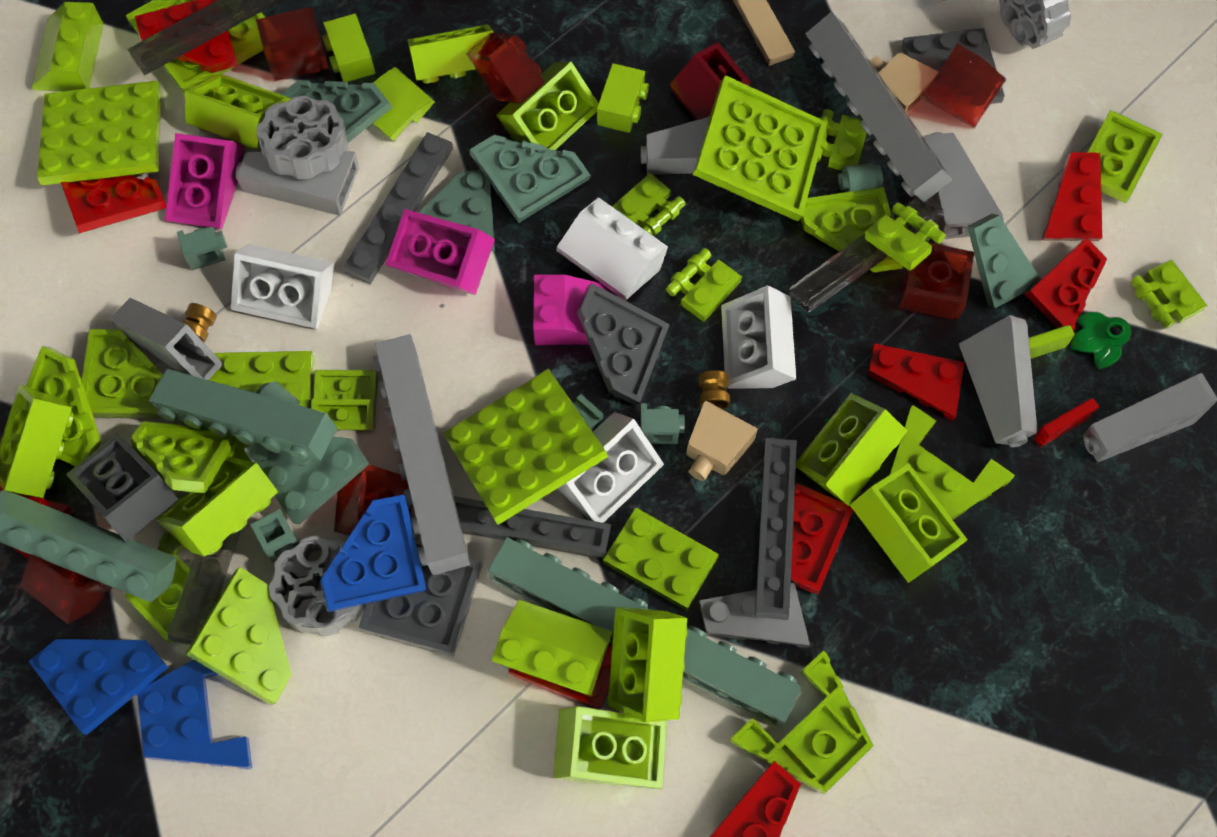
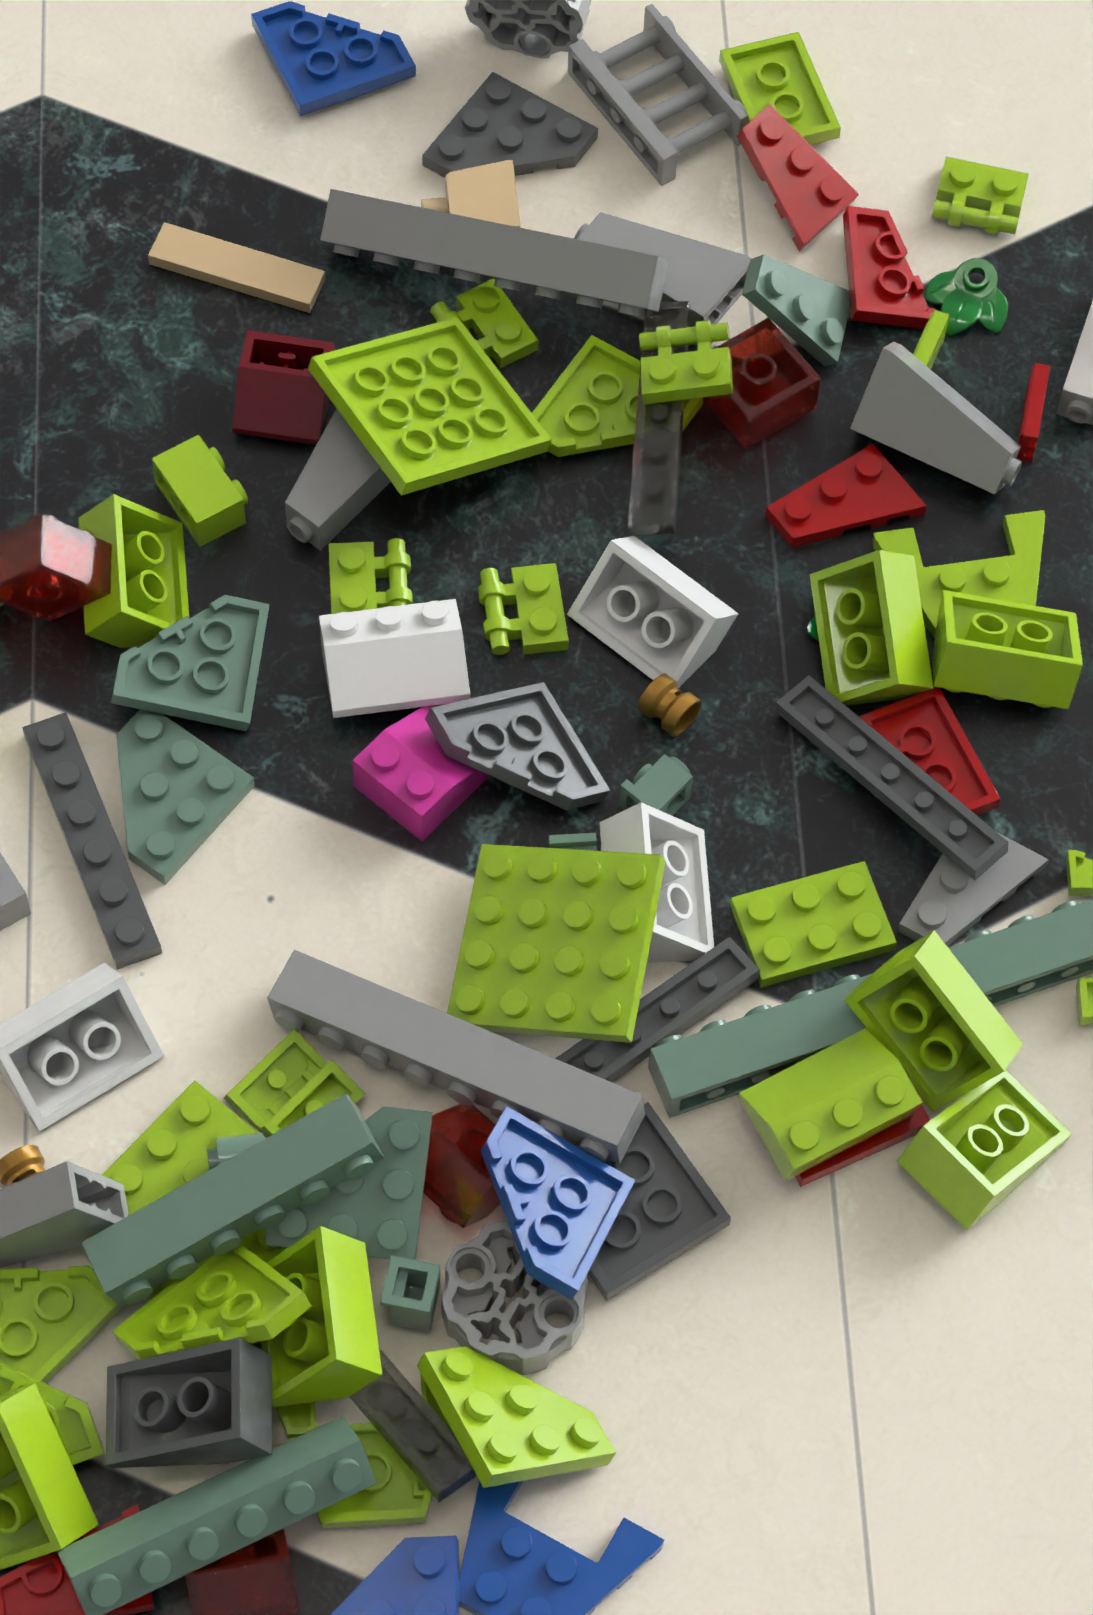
camera: 50 degrees left, 5 degrees down
(440, 251) = (210, 836): dark pink slope -> none
(718, 441) = (732, 752): tan torso -> none
(860, 177) = (556, 347): sand green brick -> none
(965, 86) = (552, 152): clear red slope -> none
(1027, 110) = (638, 124): none -> light grey fence

